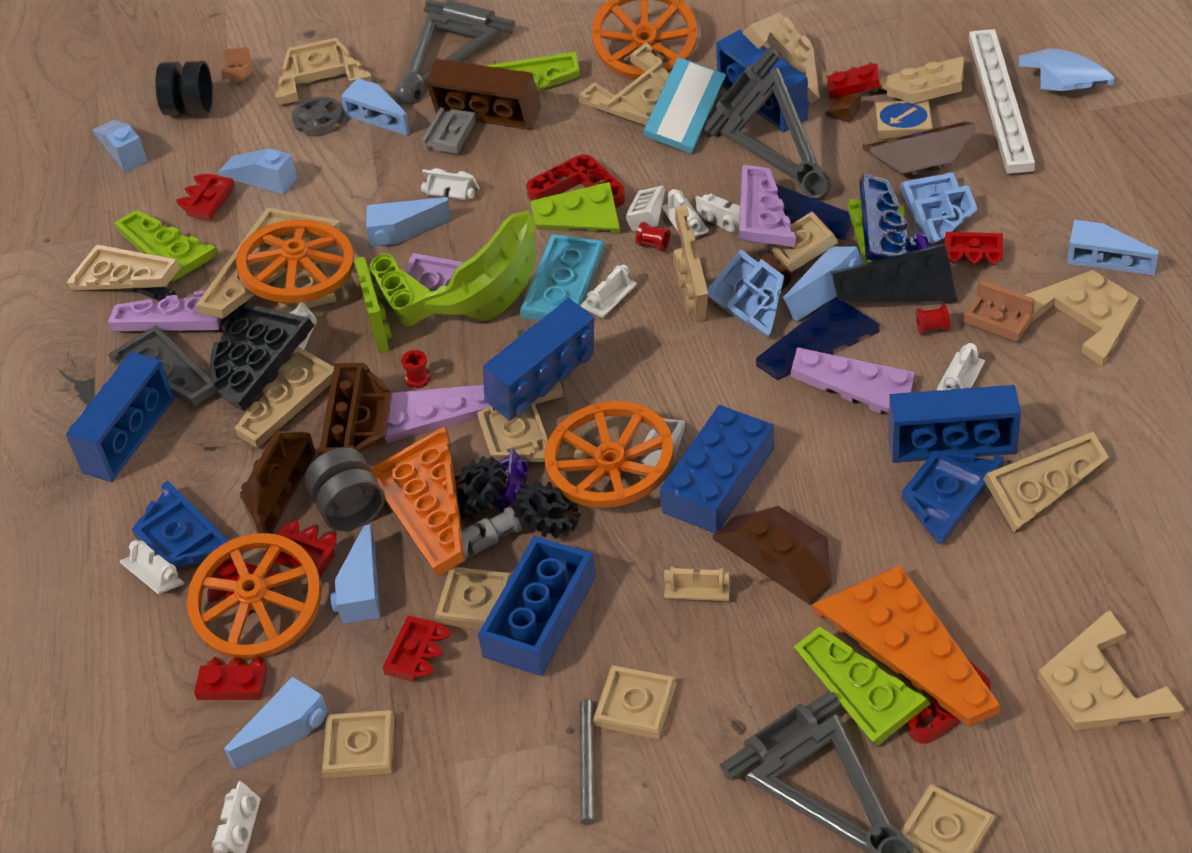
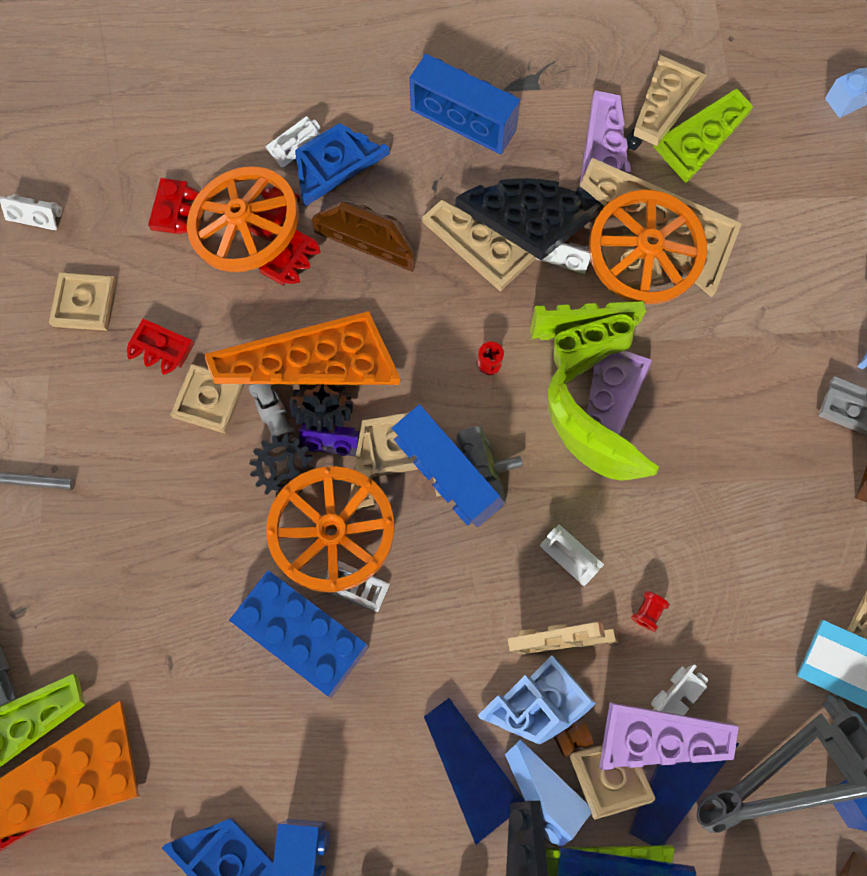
camera: 90 degrees right, 25 degrees up
(184, 376) = (543, 137): dark grey wing -> none
(206, 196) = (771, 170): red plate -> none
(263, 169) = (805, 219): light blue slope -> none
(281, 722) = (115, 247): light blue slope -> none
(344, 489) = (343, 285): flat silver wheel -> none
(355, 409) = (427, 297): reddish brown wedge -> none
(358, 582) = (238, 302): light blue slope -> none
(404, 220) = (706, 350): light blue slope -> none
(431, 409) = (441, 370): lavender wing -> none
(461, 185) = (766, 393): white hinge -> none
(537, 605) = (169, 447): blue brick -> none
(562, 274) = (605, 511): medium azure tile -> none
(576, 173) = (766, 538): red beam -> none
(583, 208) = (702, 536): lime wing -> none
(635, 702) = (63, 525): tan tile -> none
(646, 207) = (694, 597): white slope -> none
(677, 199) = (680, 651): white hinge -> none
(701, 585) = (172, 596): tan hinge -> none
(781, 549) = (194, 679): reddish brown wedge -> none
(851, 378) = (390, 810): lavender wing -> none

